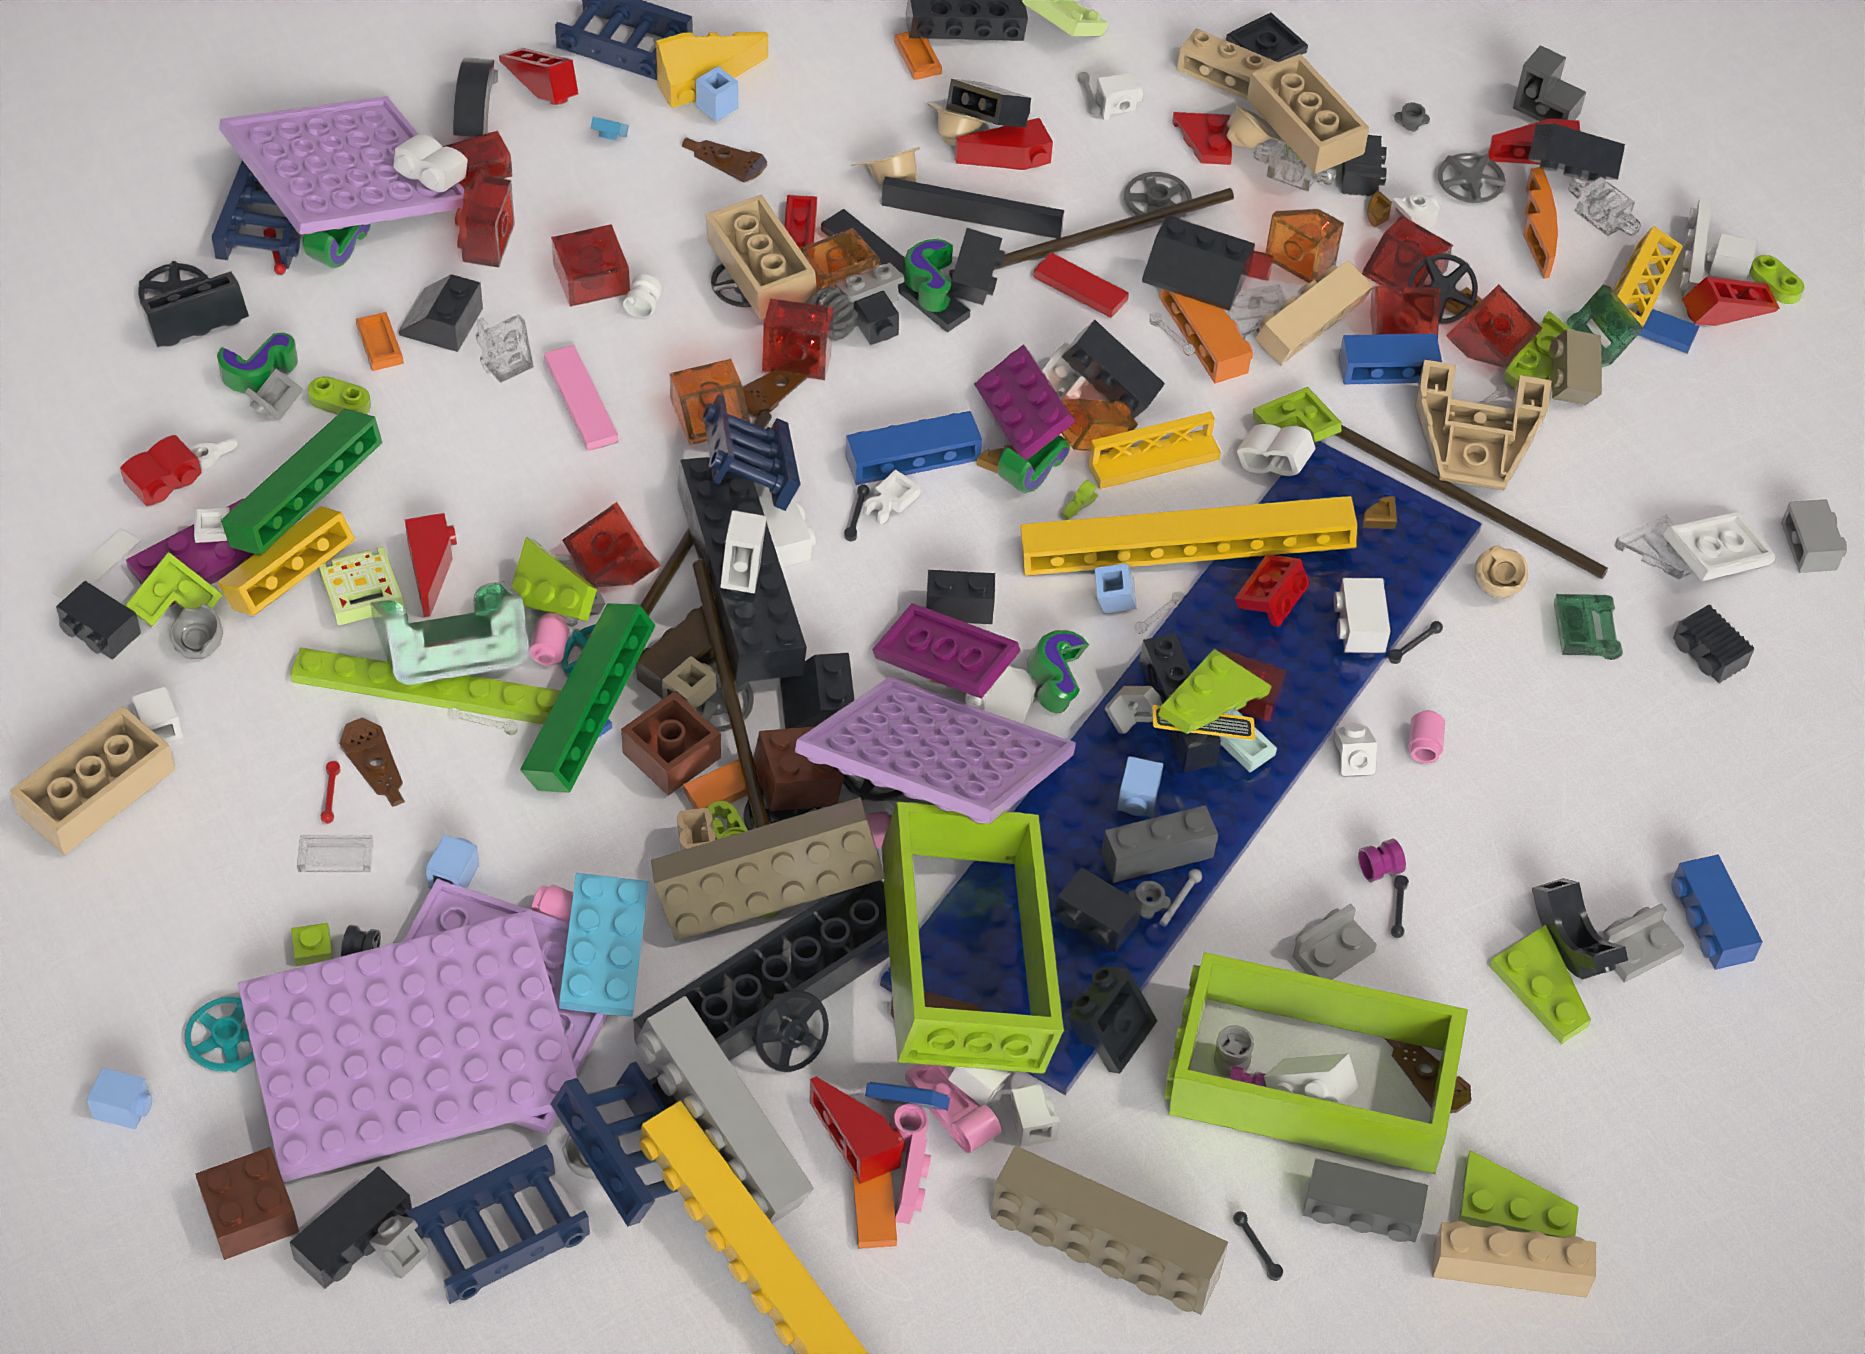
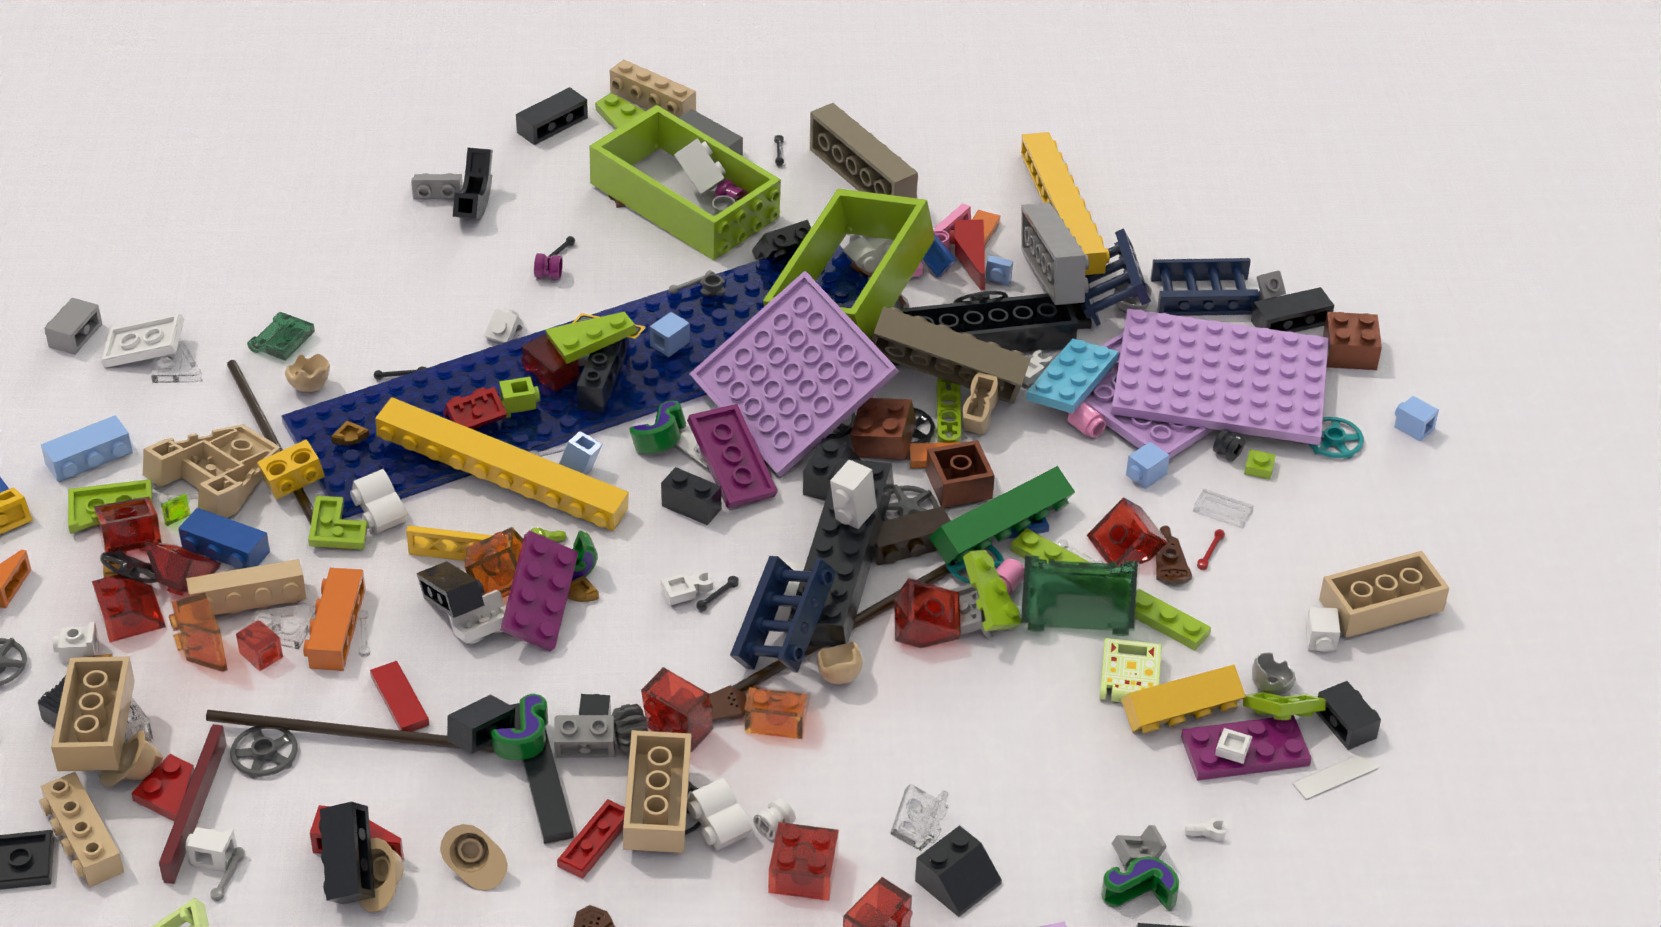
camera: 150 degrees left, 10 degrees down
(160, 470) = (1259, 818): red brick -> none
(301, 482) = (1146, 746): green brick -> none
(336, 395) = (1077, 835): lime plate -> none
(379, 341) = (1023, 878): orange tile -> none
(431, 555) = (1066, 668): red slope -> none
(431, 751) = (1127, 535): none -> clear red slope
(581, 397) = (877, 761): bright pink tile -> none
(664, 457) = (840, 663): none -> tan hair
(673, 963) = (1036, 367): none -> white plate
(691, 681) = (926, 495): dark tan brick -> none
(694, 273) = (719, 813): none -> white brick
(730, 694) = (902, 480): dark brown piece -> none
(801, 1121) = (999, 270): none -> light blue plate
(839, 258) = (595, 761): clear orange slope -> none
(913, 447) = (643, 611): blue brick -> none
(972, 207) = (431, 787): black tile -> none
(1098, 910) = (748, 284): black brick -> none
(1131, 706) = (629, 367): light grey bracket -> none
(1159, 844) = (685, 299): dark grey brick -> none
(1170, 125) = (192, 803): none -> dark red tile
(1198, 262) = (308, 633): black slope -> none
(1240, 620) = (518, 395): none -> lime brick
(1333, 944) = (617, 245): light grey bracket -> none
(1362, 615) = (431, 371): white brick -> none
(1395, 443) = (291, 469): none -> yellow brick
(1426, 736) = (454, 313): bright pink brick -> none
(1471, 379) = (175, 509): none -> clear neon green slope
(1543, 984) = (510, 192): lime wing -> none
(1576, 367) = (103, 469): dark tan brick -> none
(1611, 1142) = (551, 116): none -> black brick
(1613, 320) = (36, 492): clear green plate -> none
(1627, 399) = (86, 448): none -> light blue brick
(1713, 643) = (217, 295): black brick -> none
(1716, 912) = (379, 178): blue brick -> none

